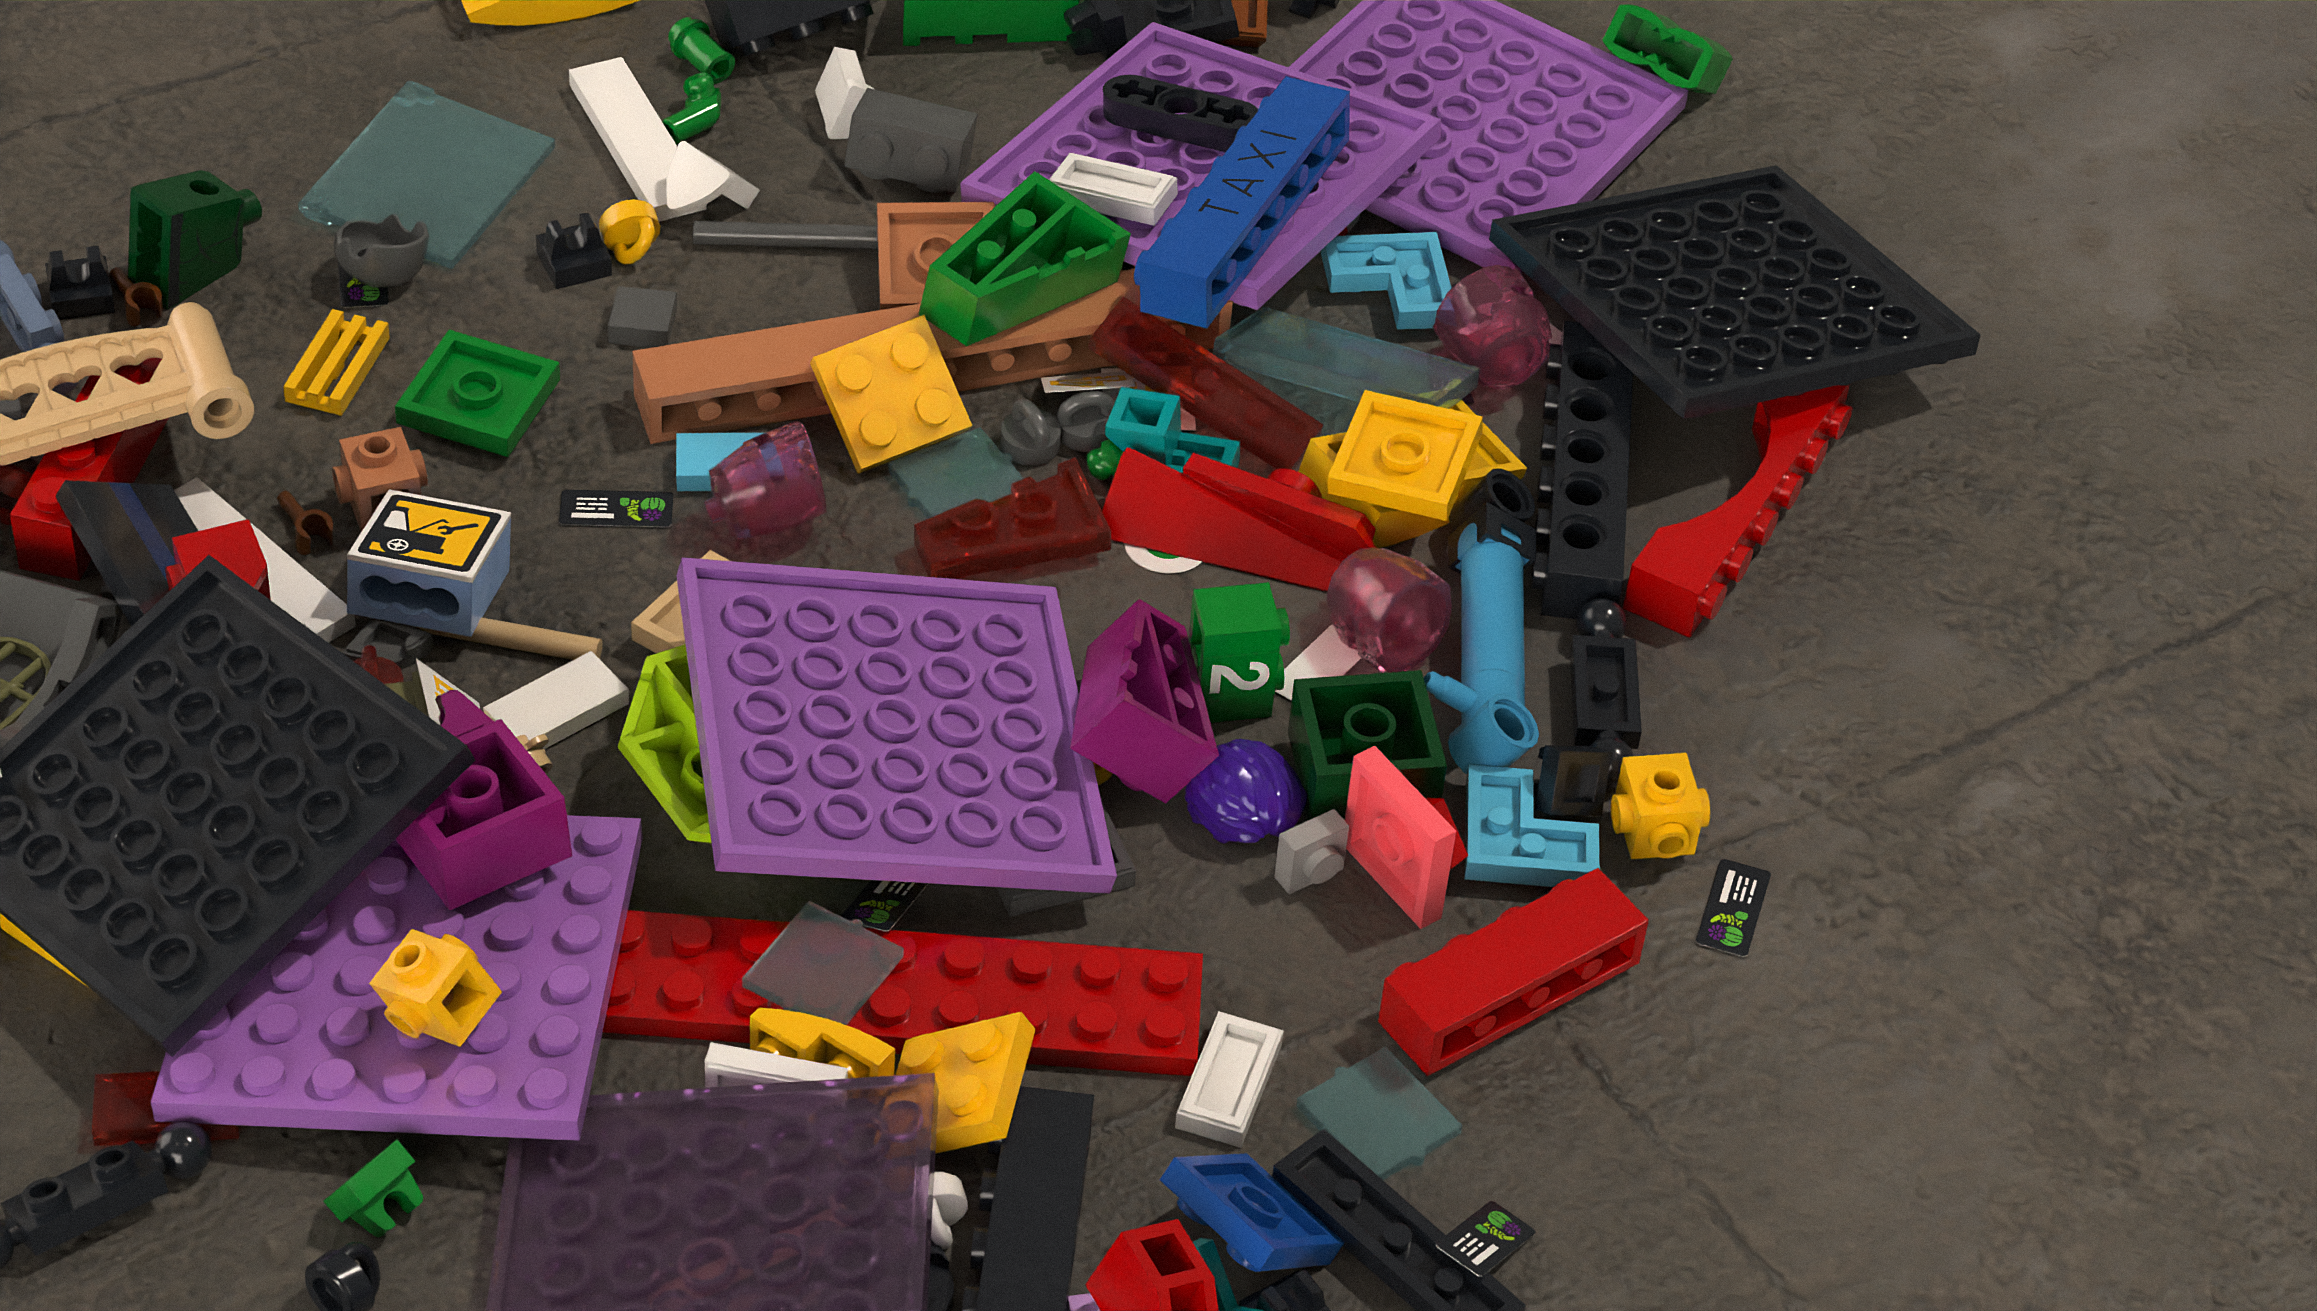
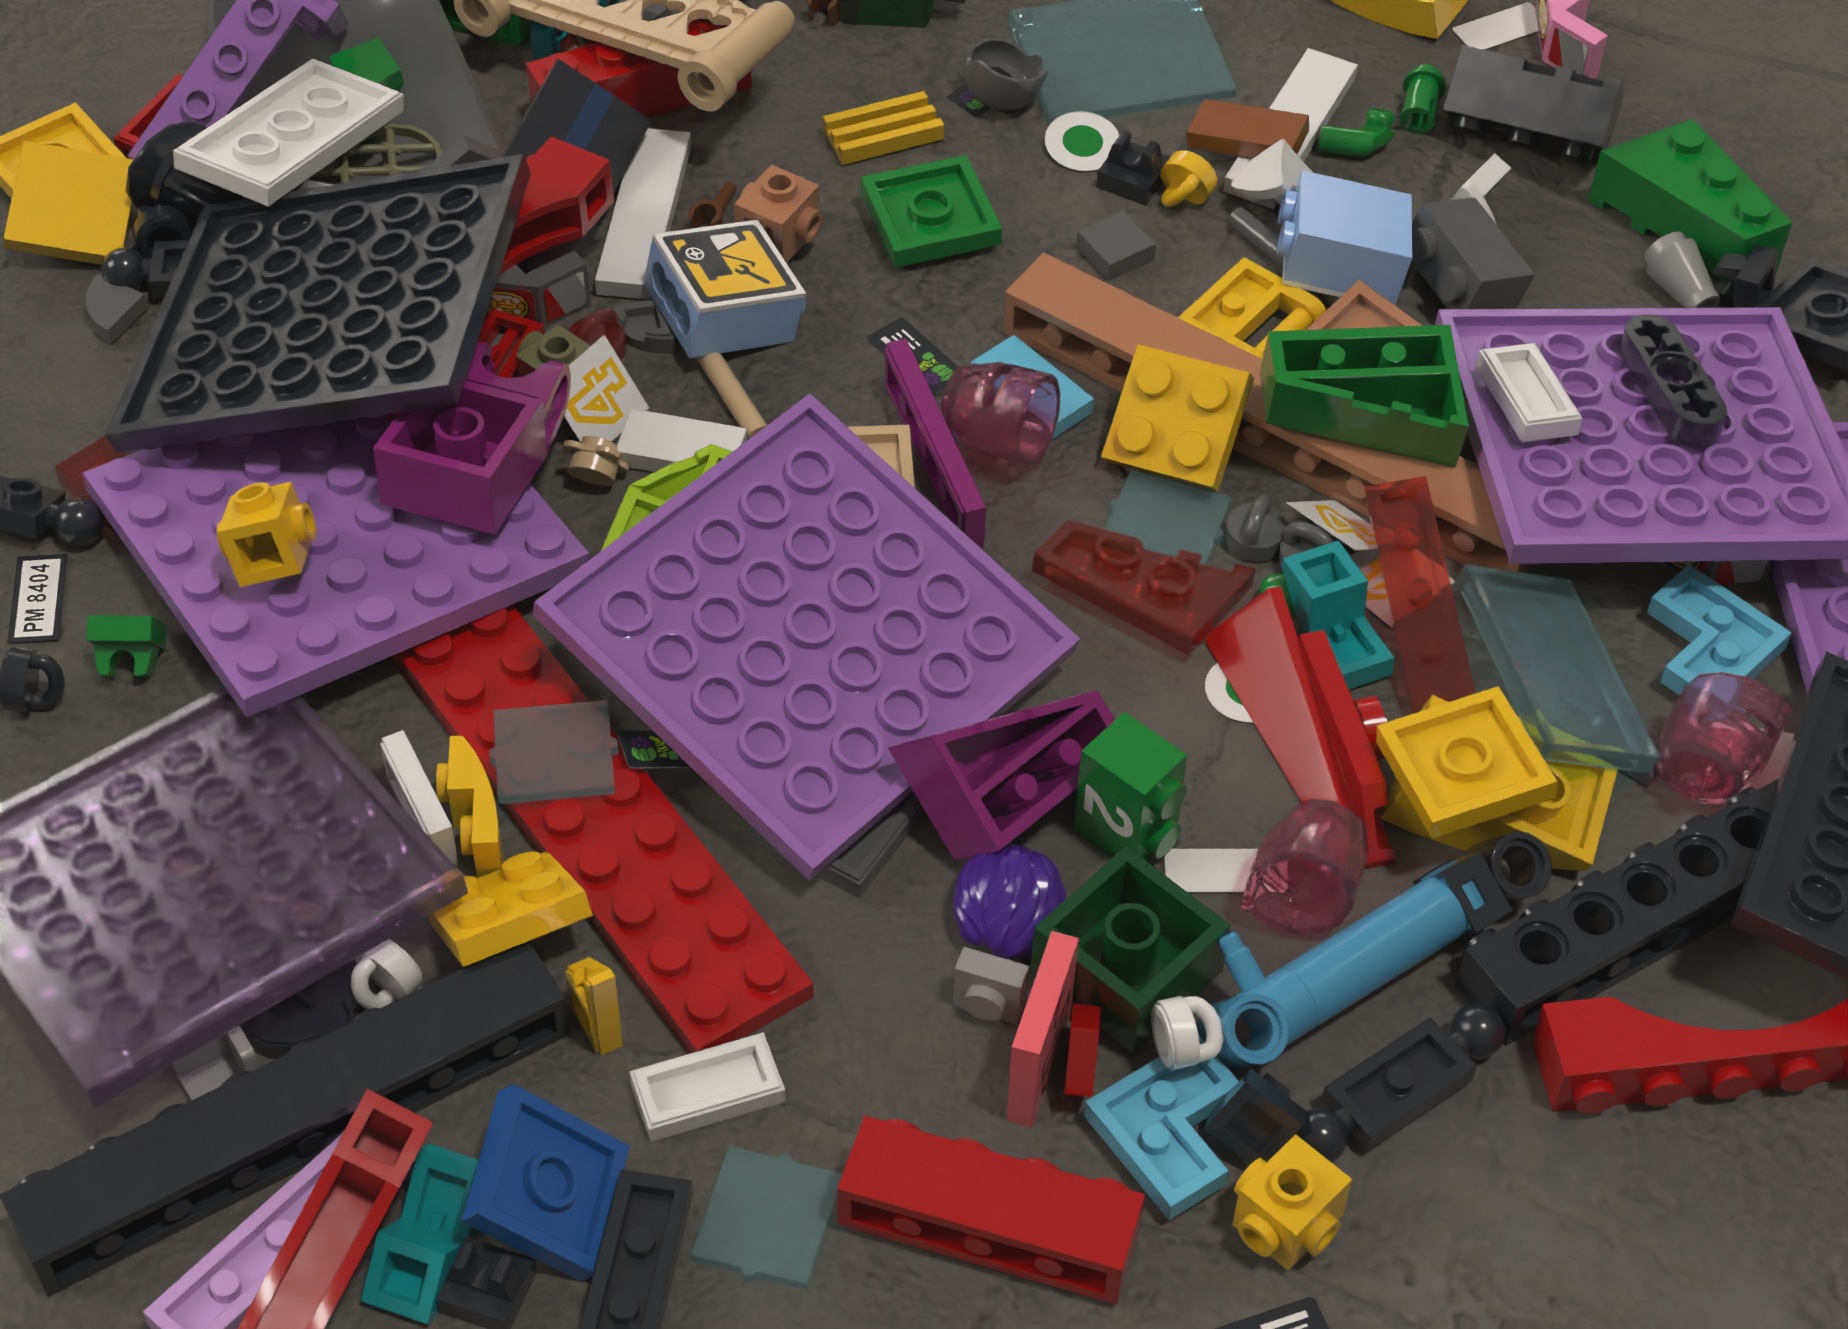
camera: 55 degrees right, 5 degrees up
(227, 1236) = (37, 598): none -> sticker
(499, 261) = (1080, 140): none -> white sticker
(623, 160) = (1244, 128): none -> dark orange tile
(689, 531) = (933, 441): none -> magenta tile
(798, 287) = (1246, 300): none -> yellow plate
(816, 182) = (1344, 234): none -> light blue piece
(1048, 49) = (1680, 271): none -> light grey cone
(1111, 1076) = (595, 1003): none -> yellow tile
(1243, 202) = (1598, 470): blue brick -> none
(1476, 763) = (1177, 1033): none -> white tile

